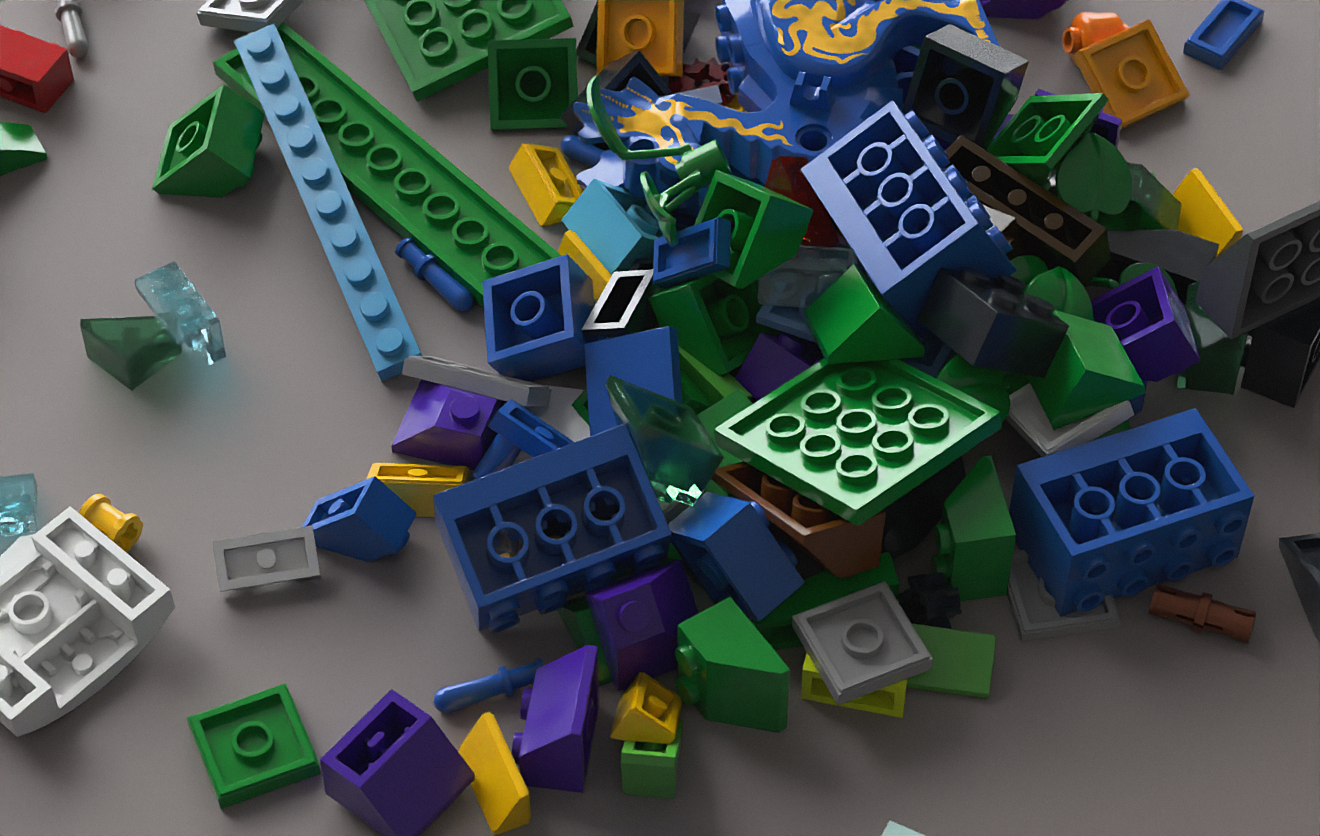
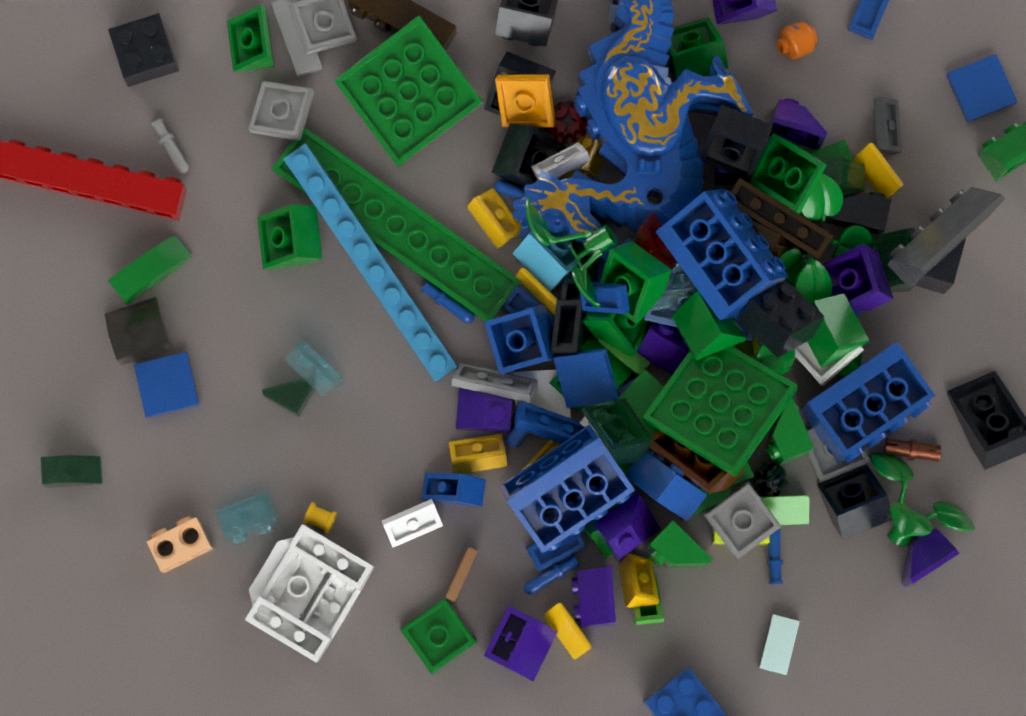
camera: 15 degrees left, 30 degrees up
(327, 650) = (461, 574): none -> medium nougat tile
(512, 645) = (569, 546): none -> blue tile
(531, 82) = (468, 150): green slope -> none
(911, 738) = (774, 558): none -> blue piece
(1083, 672) = (855, 501): none -> black slope
(1132, 73) = (821, 67): light orange tile -> none
(1167, 715) = (908, 521): none -> green plant
(1207, 774) = (926, 555): none -> dark purple slope
(1229, 163) = (887, 125): none -> dark grey plate

